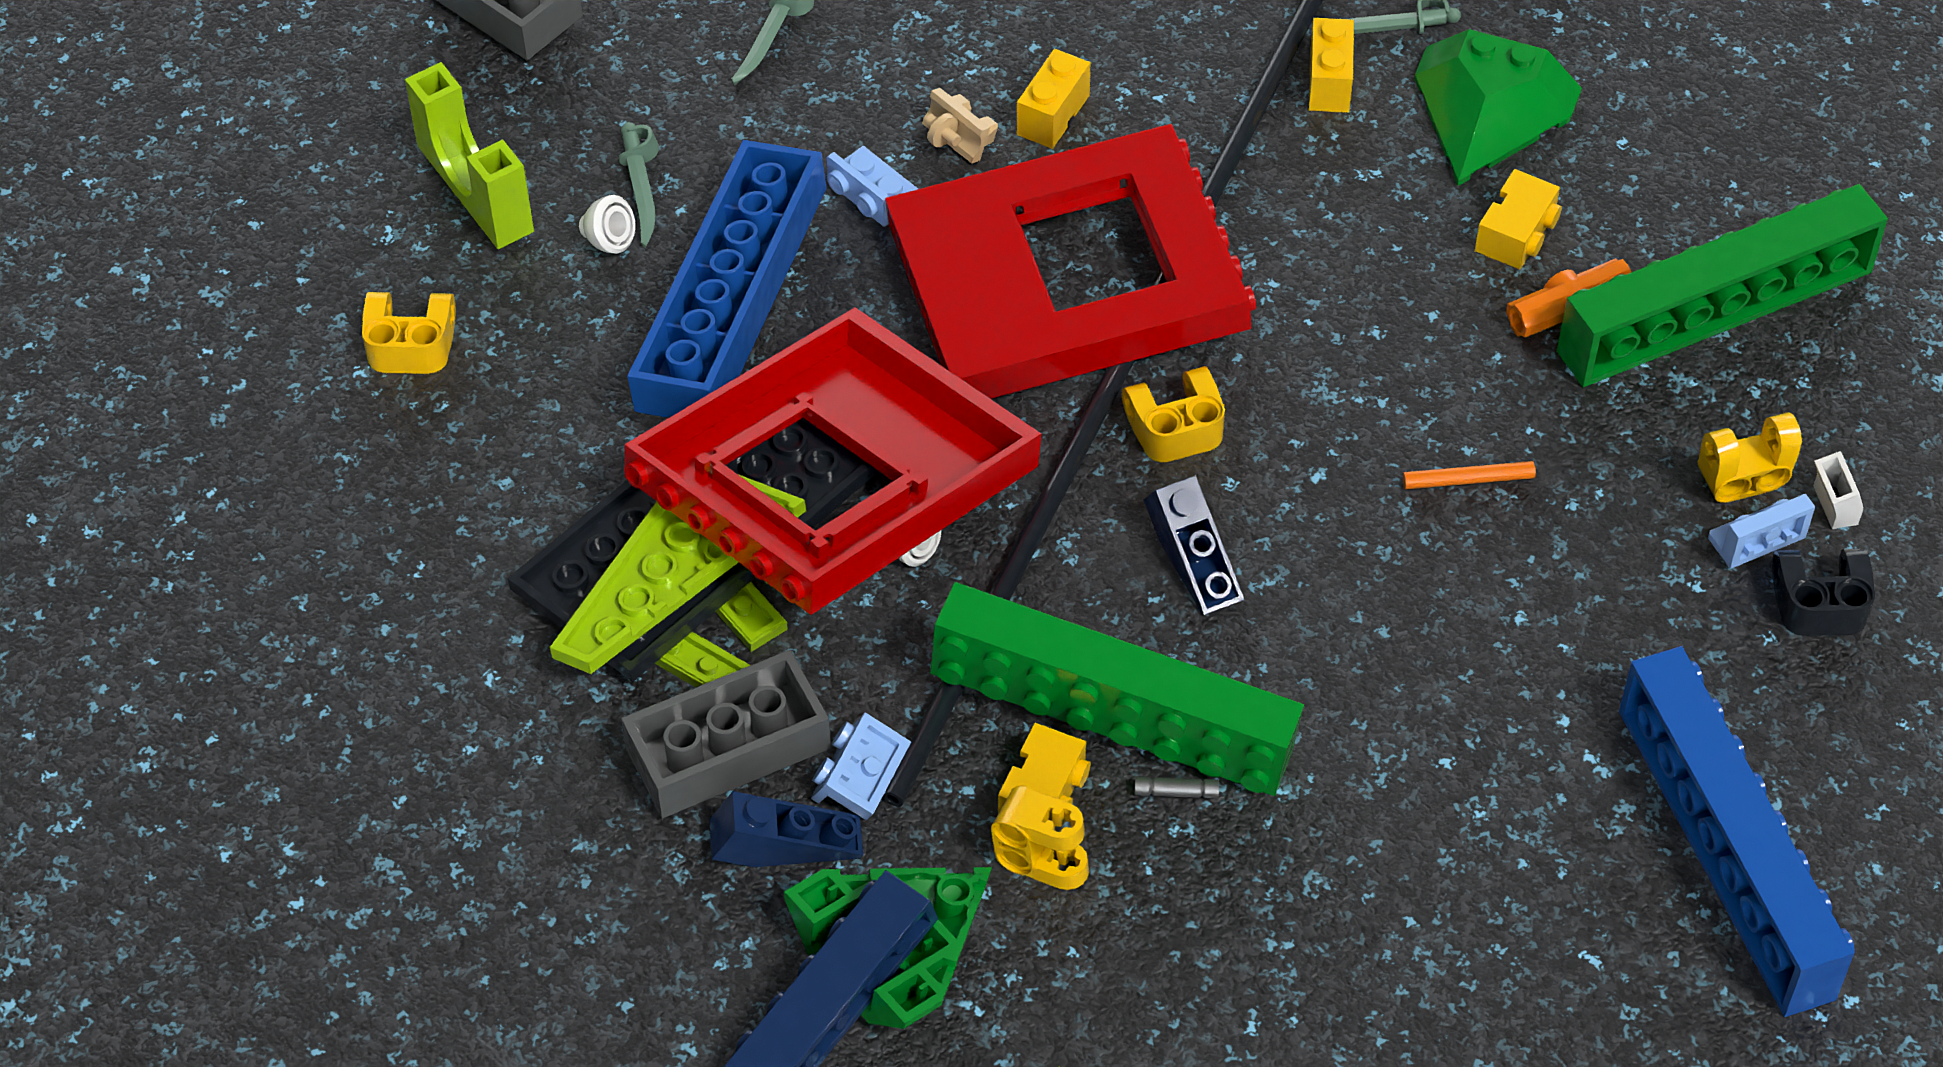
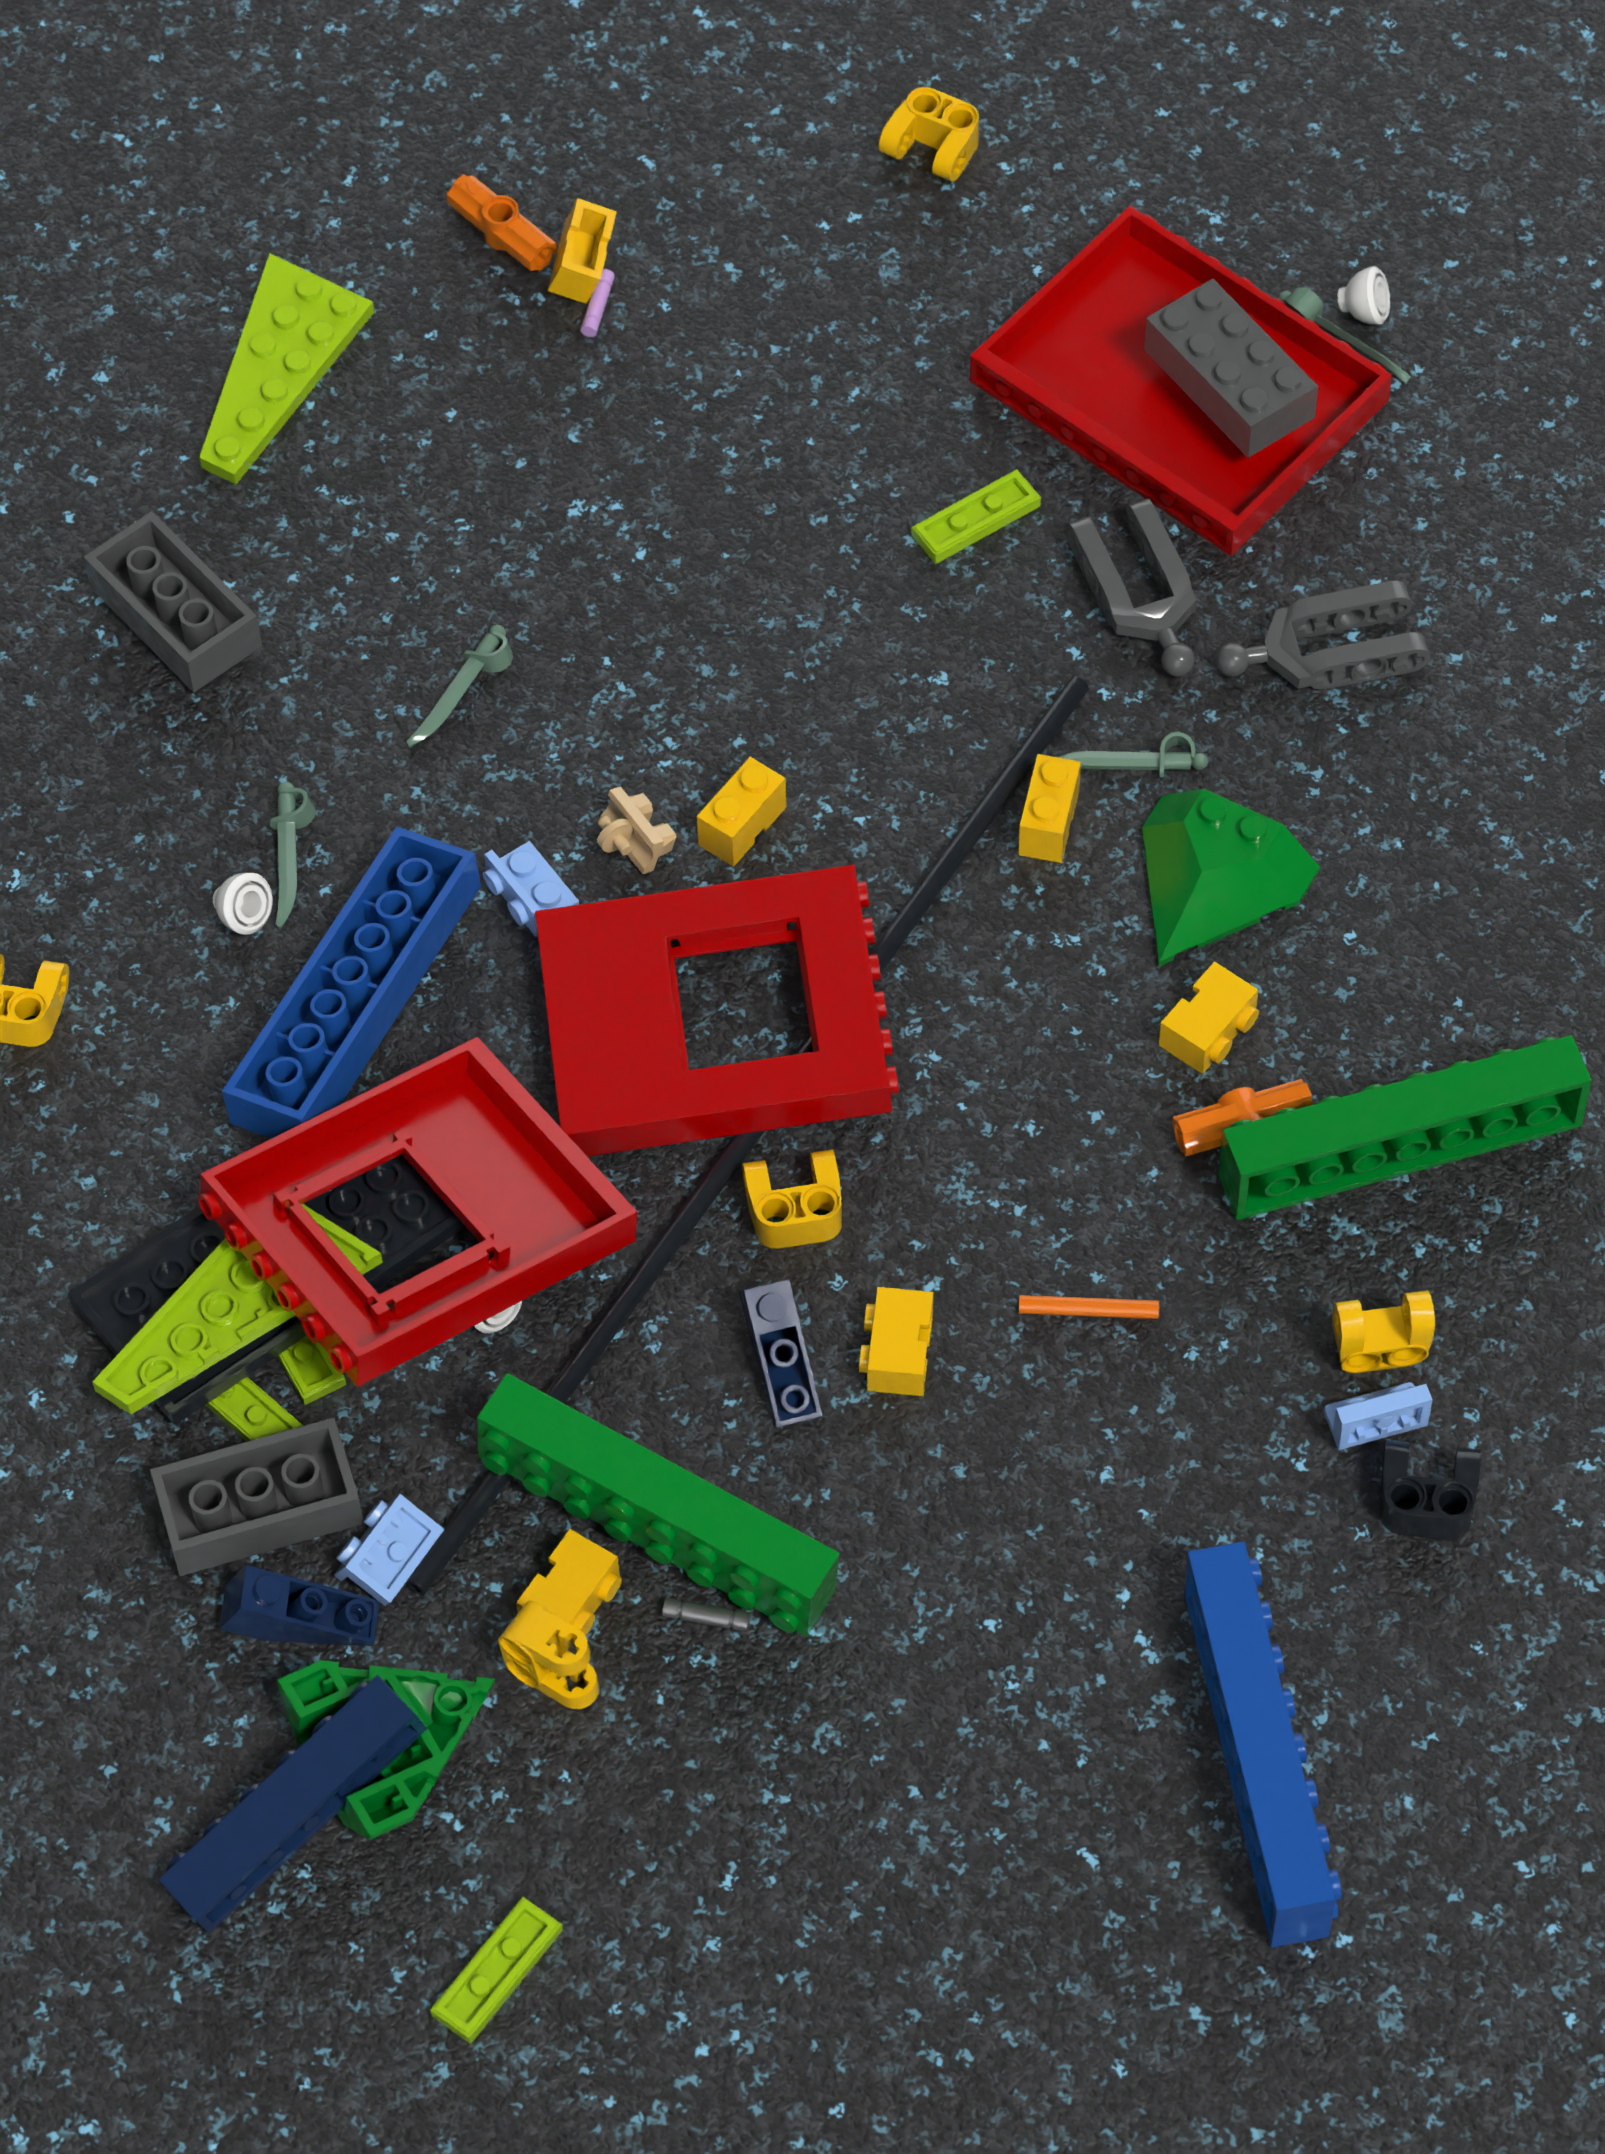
camera: 10 degrees right, 5 degrees up
(485, 180) = (115, 832): lime arch -> none
(1303, 530) = (899, 1341): none -> yellow brick
(1847, 508) = (1469, 1357): white piece -> none

